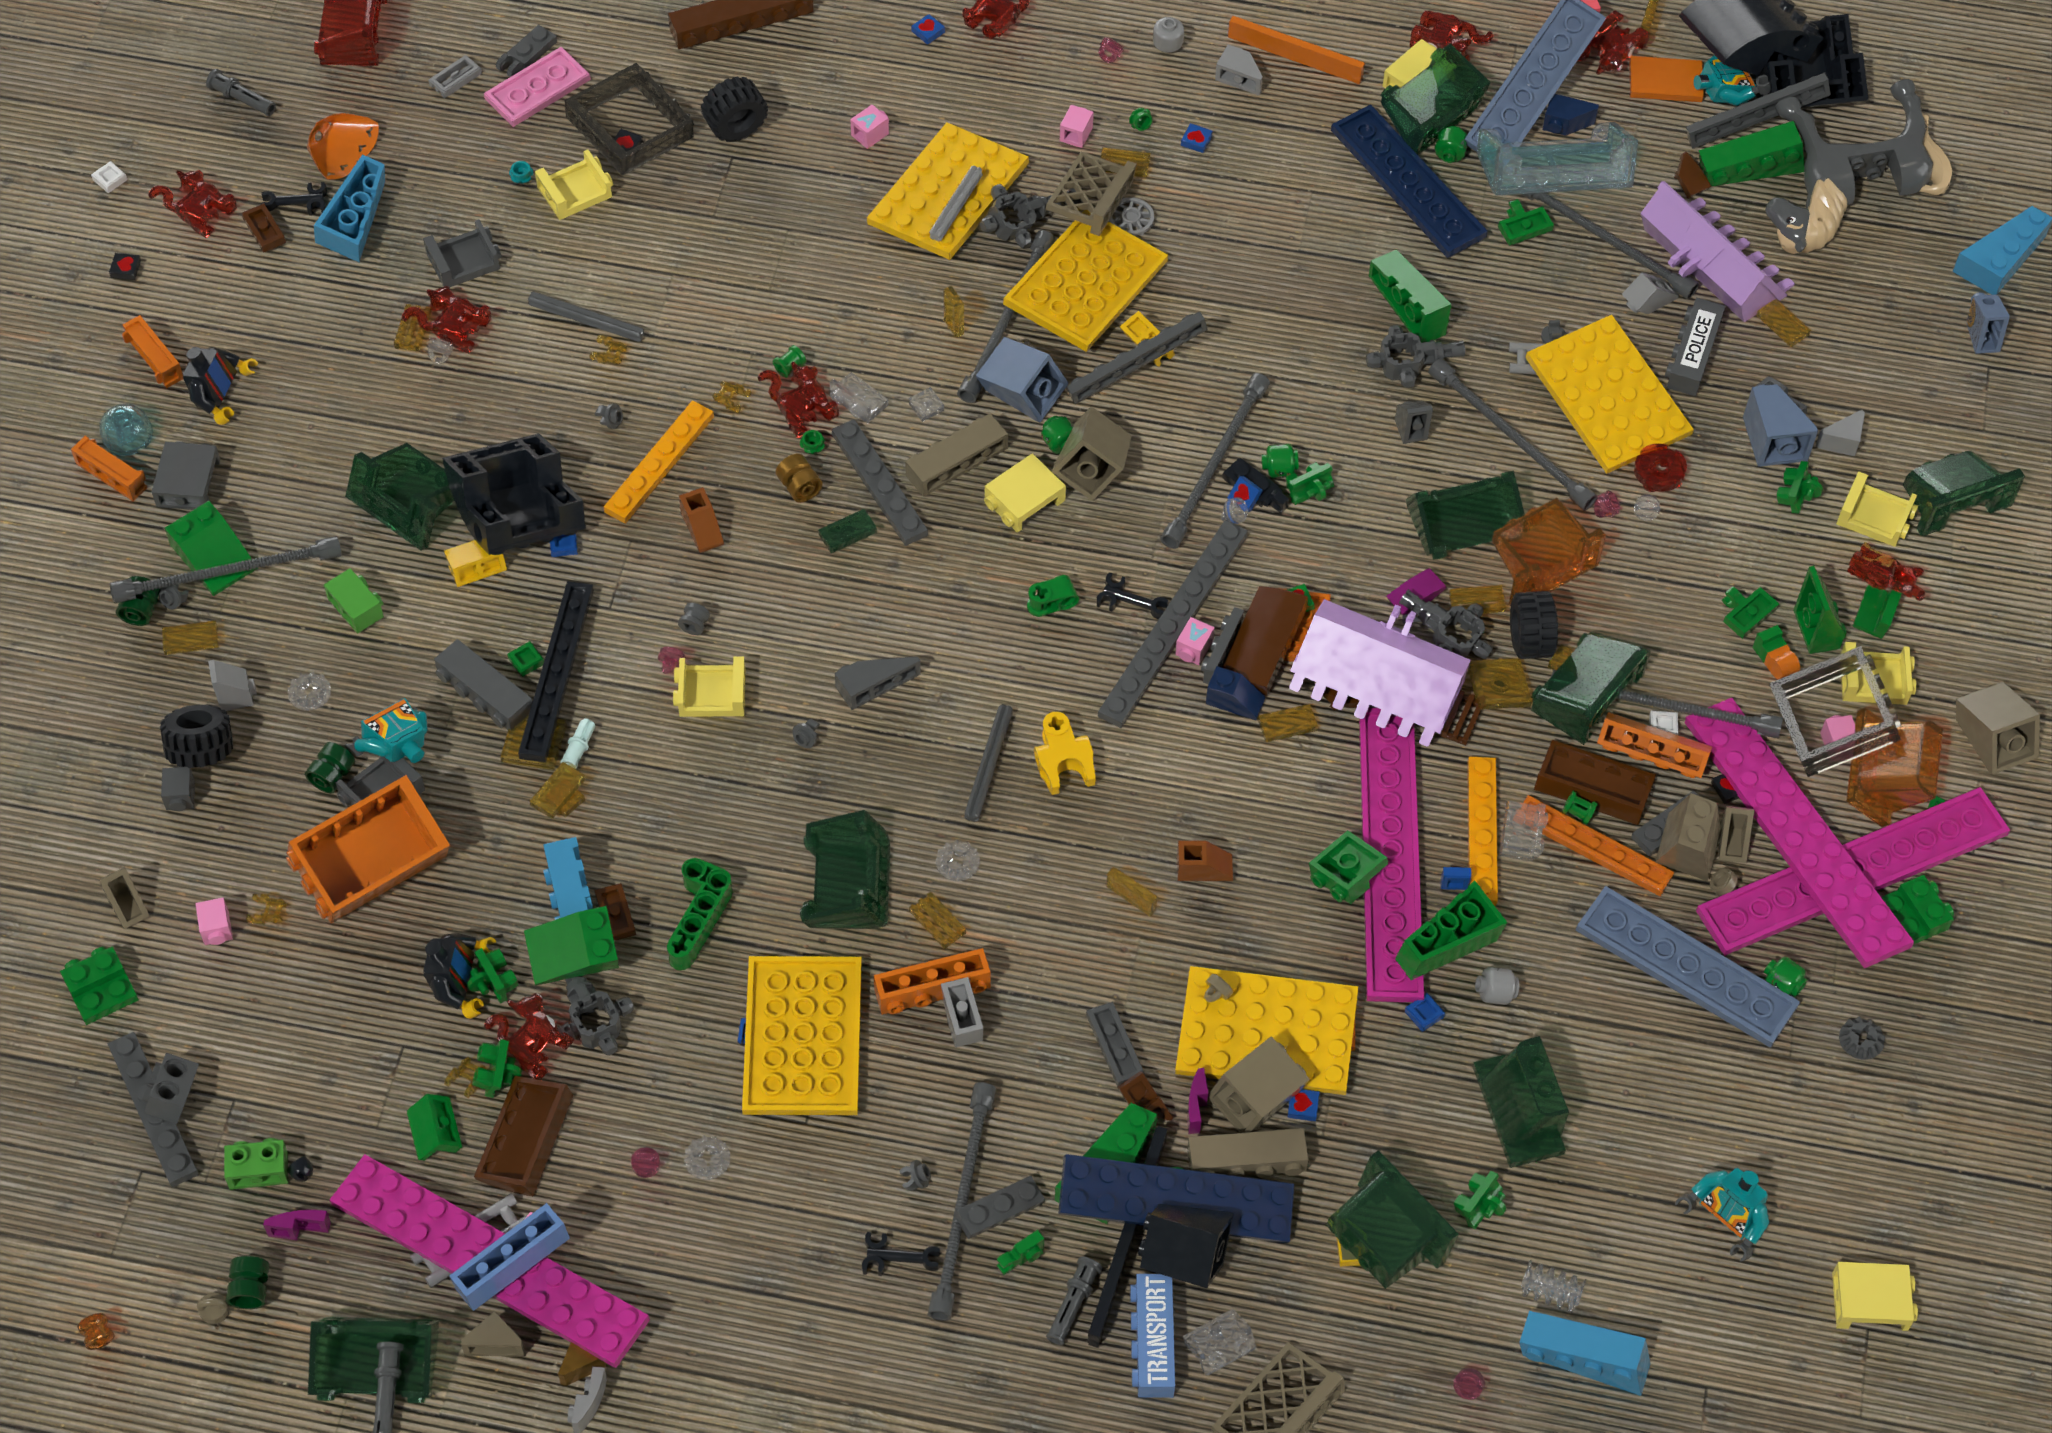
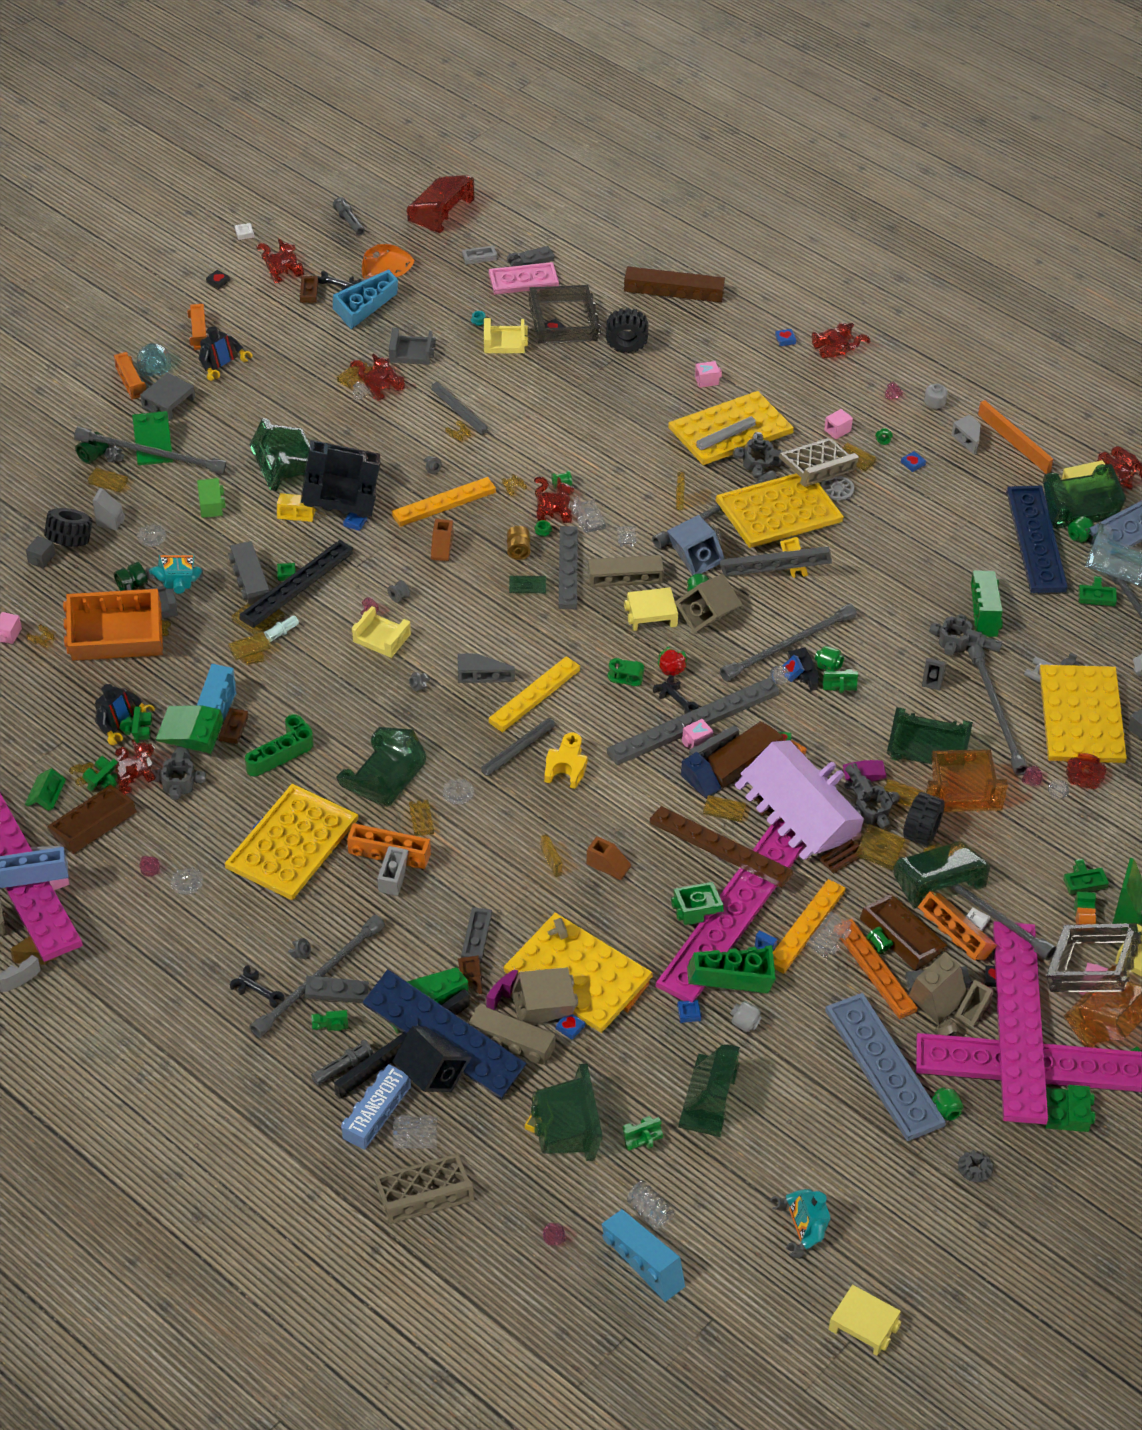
camera: 30 degrees right, 10 degrees down
(958, 680) = (534, 694): none -> yellow plate
(1100, 556) = (672, 662): none -> red piece
(1322, 777) = (721, 846): none -> reddish brown plate

